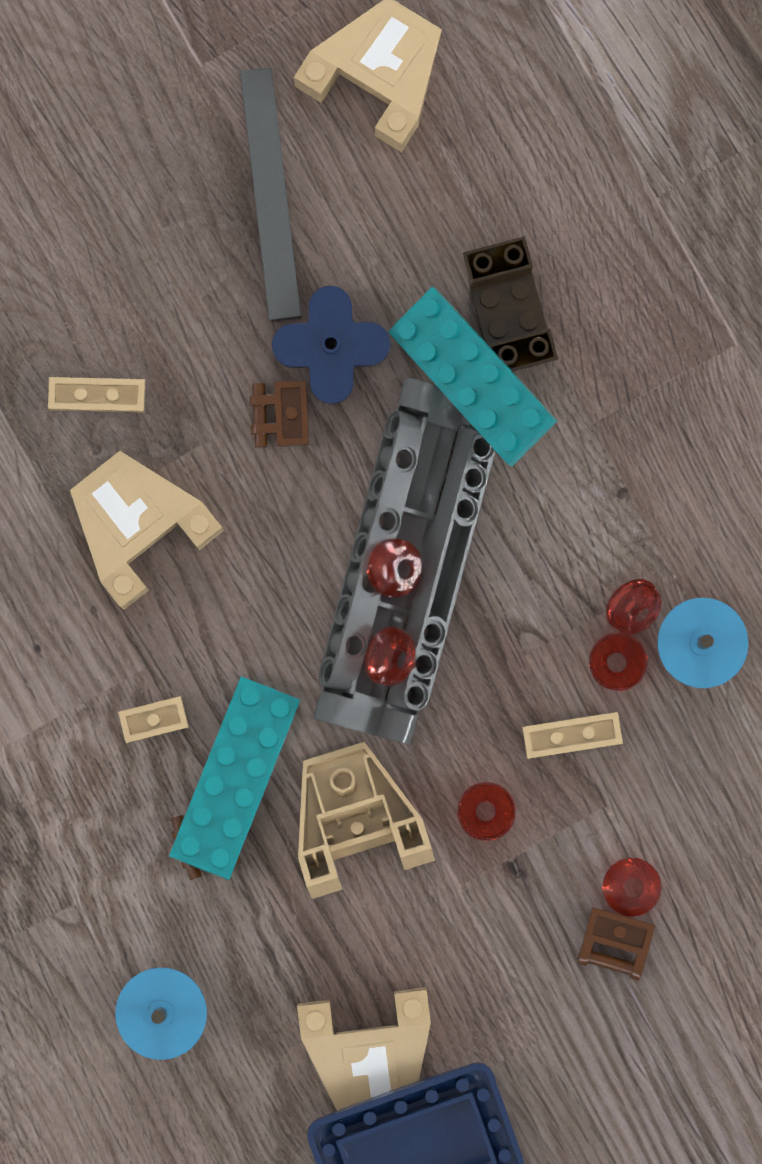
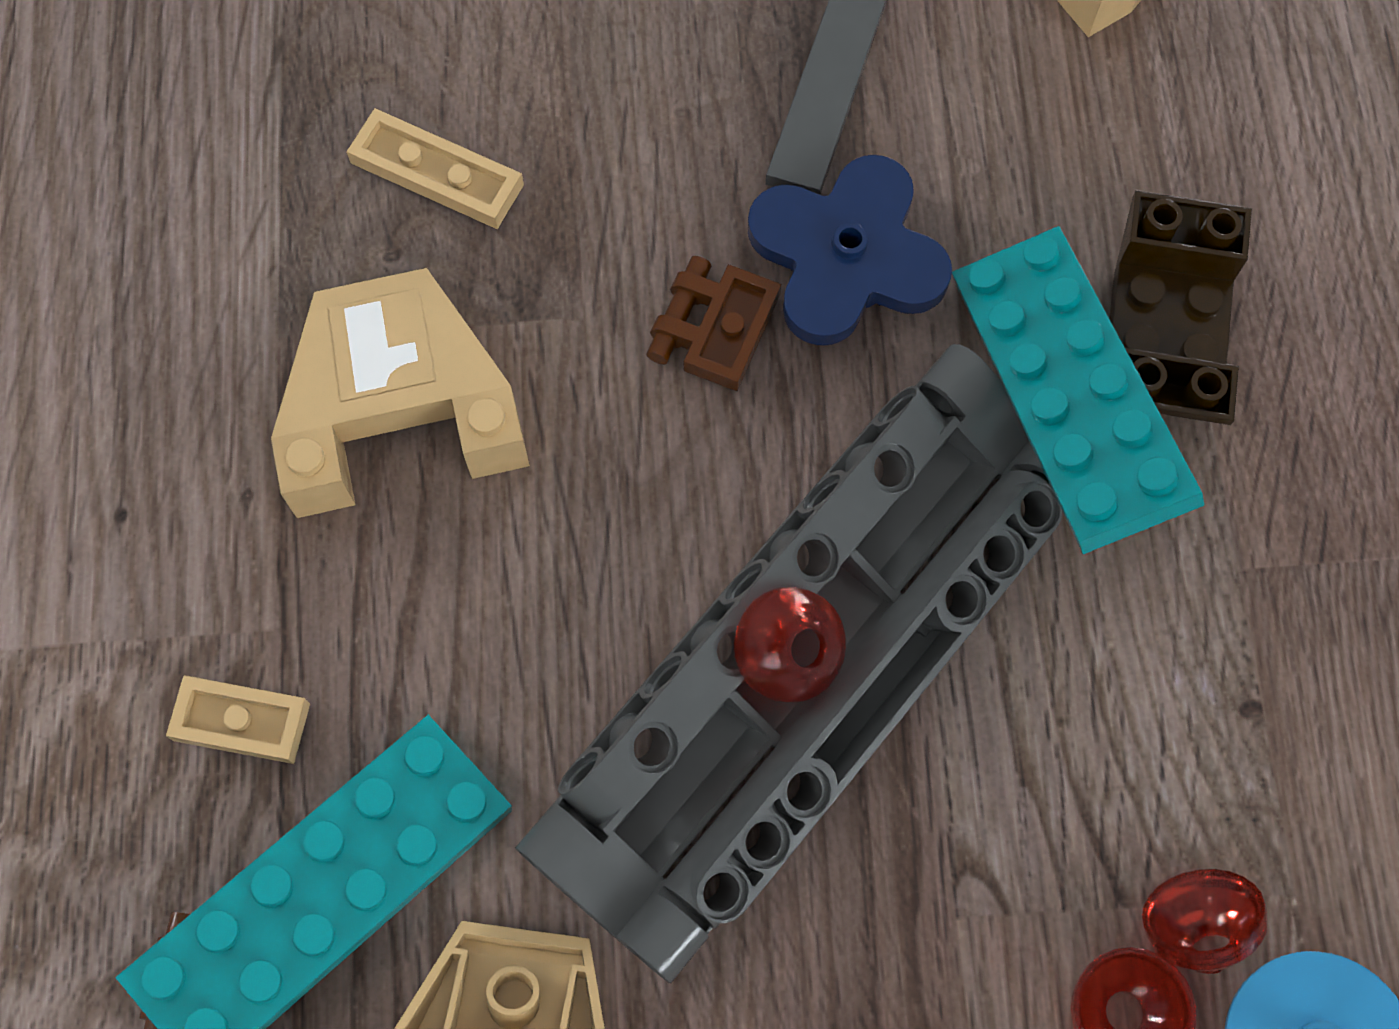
camera: 25 degrees right, 15 degrees down
(383, 656) = (700, 787): clear red piece -> none

